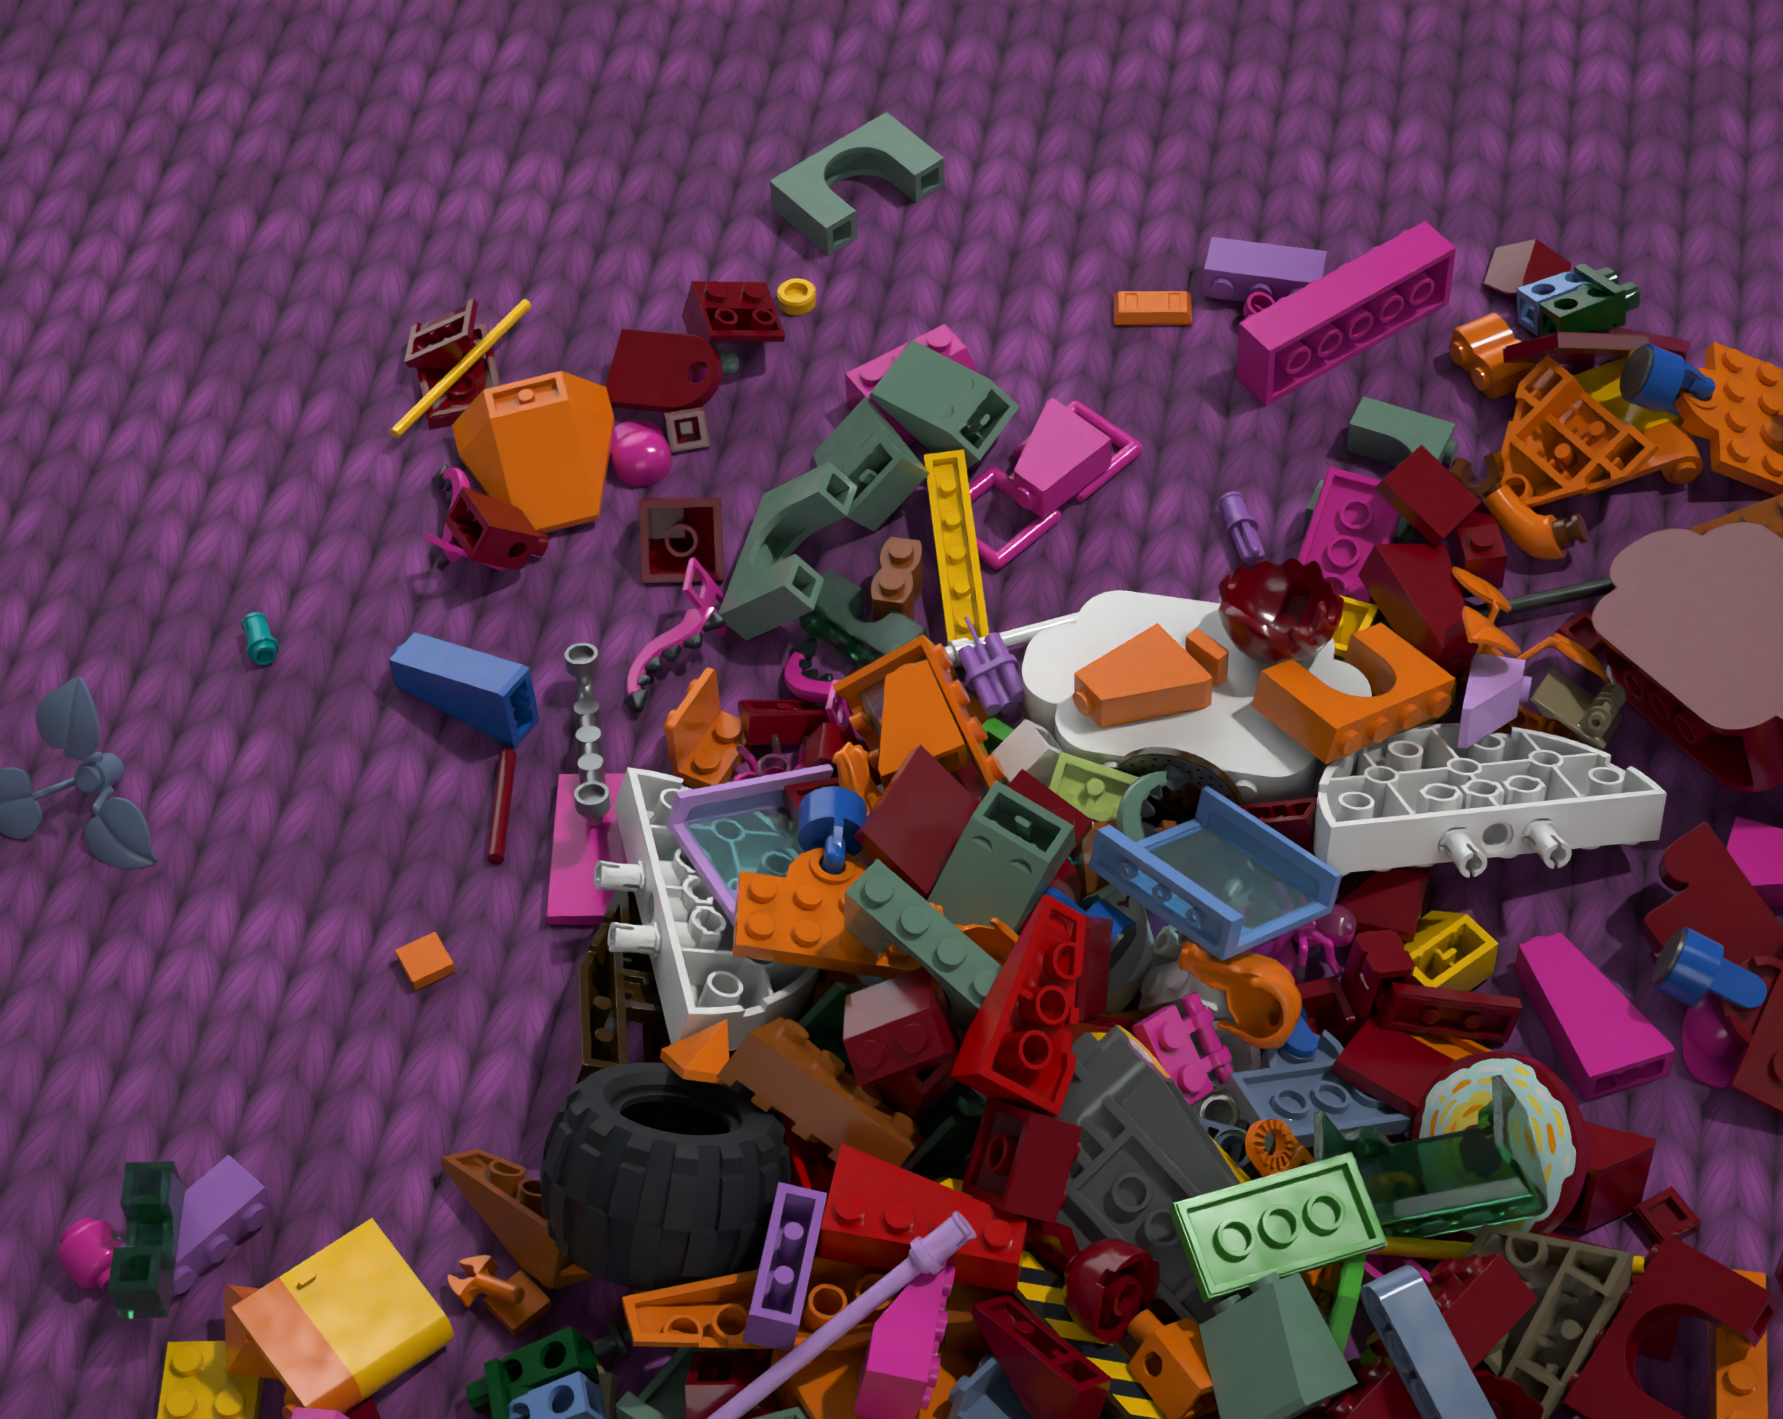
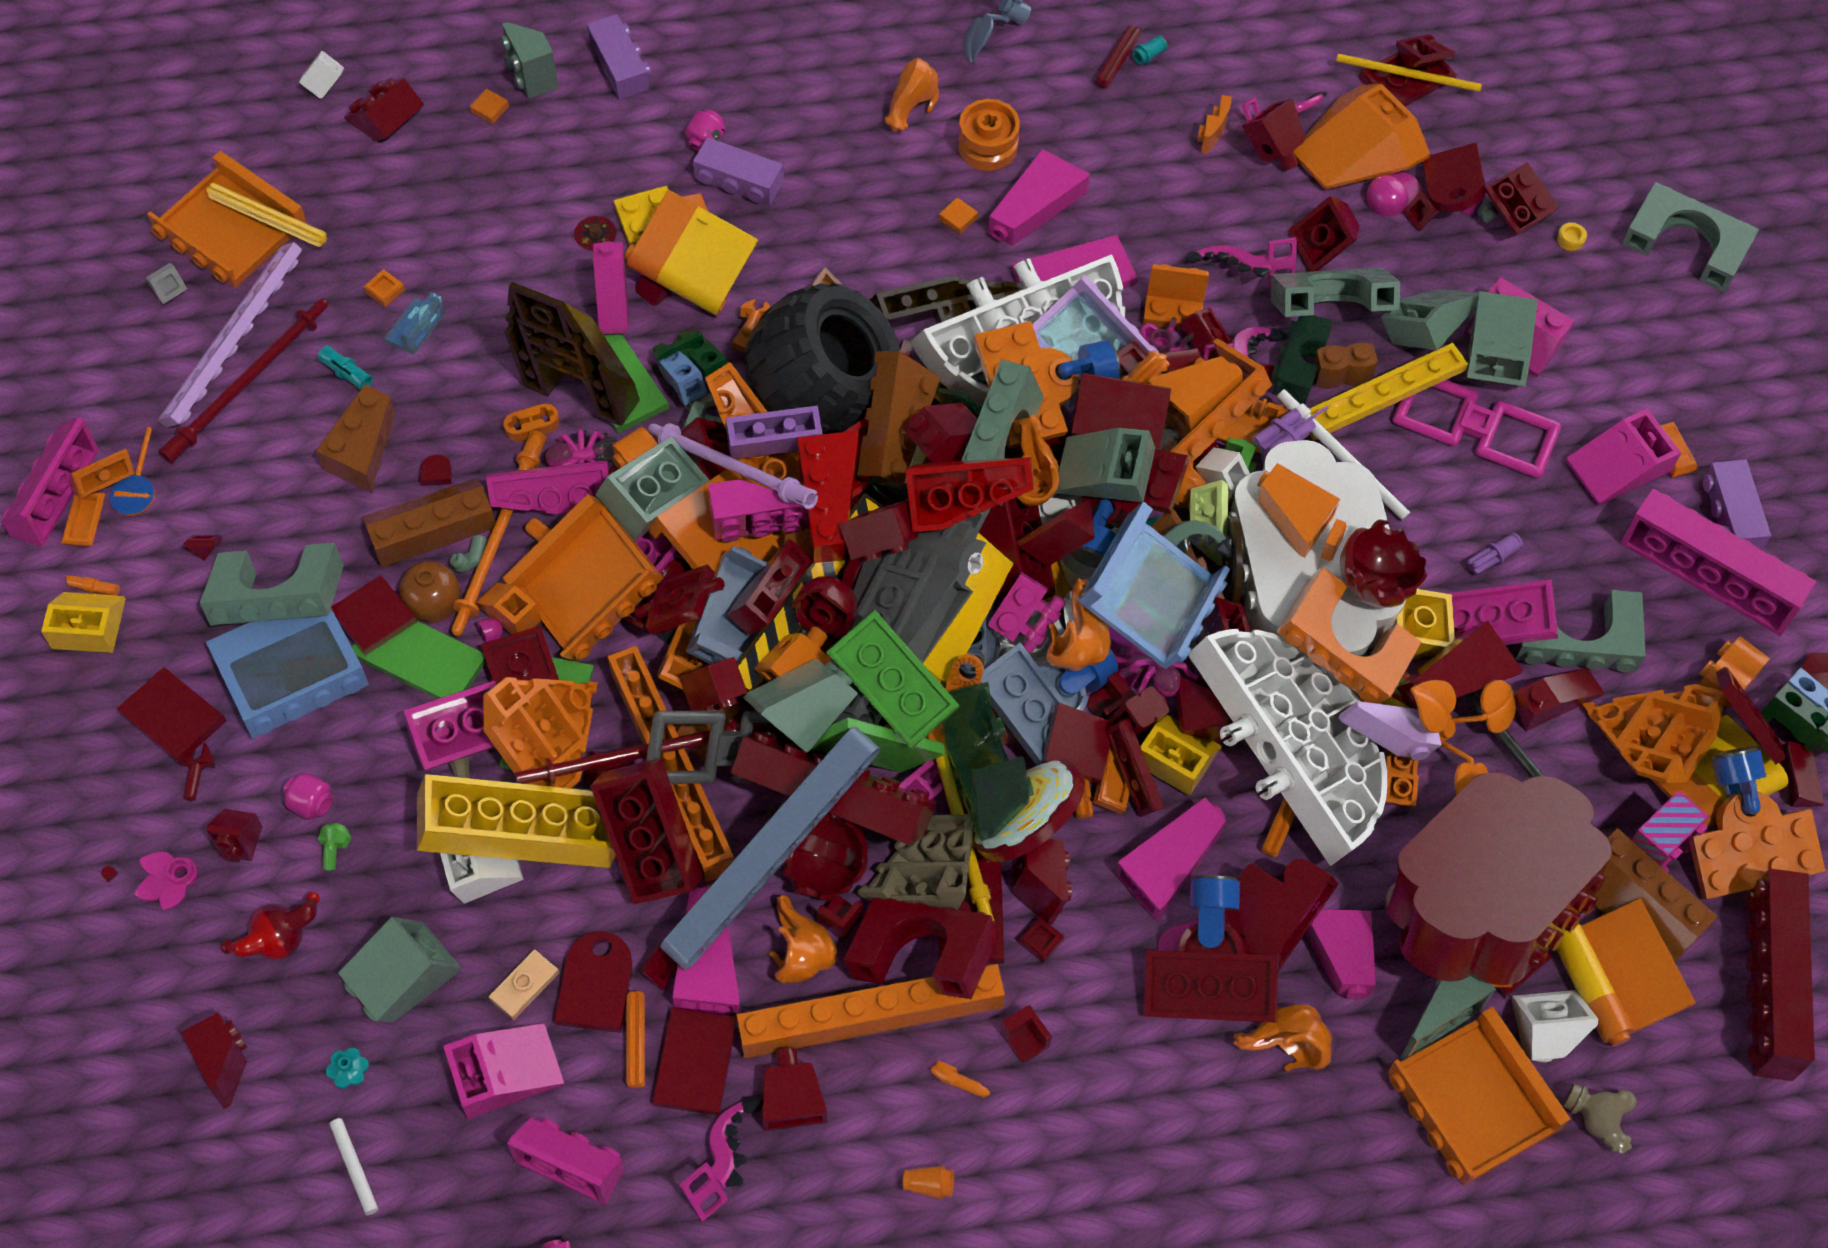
camera: 65 degrees right, 10 degrees up
(146, 1265) = (724, 140): arch -> none
(173, 936) = (914, 85): none -> orange piece
(248, 680) = (1117, 56): none -> dark red axle
(310, 872) = (988, 134): none -> orange wheel
(439, 606) = (1215, 125): none -> orange slope
(444, 847) = (1037, 196): none -> dark pink slope
(469, 686) = (1155, 164): blue slope -> none
(501, 806) = (1084, 215): dark red bar -> none
(592, 794) = (1084, 250): flat silver bar -> none
(700, 1055) = (900, 342): orange slope -> none
(1059, 459) = (1488, 421): dark pink slope -> none
(1156, 351) = (1624, 457): none -> dark pink slope
(1257, 302) = (1708, 508): dark pink hinge -> none
(1427, 495) = (1554, 646): dark red tile -> none
(1533, 533) = (1575, 728): piece -> none
(1568, 885) = (1278, 830): none -> orange axle
(1588, 716) = (1422, 790): dark tan hinge -> none
(1705, 479) = (1668, 830): none -> dark pink container

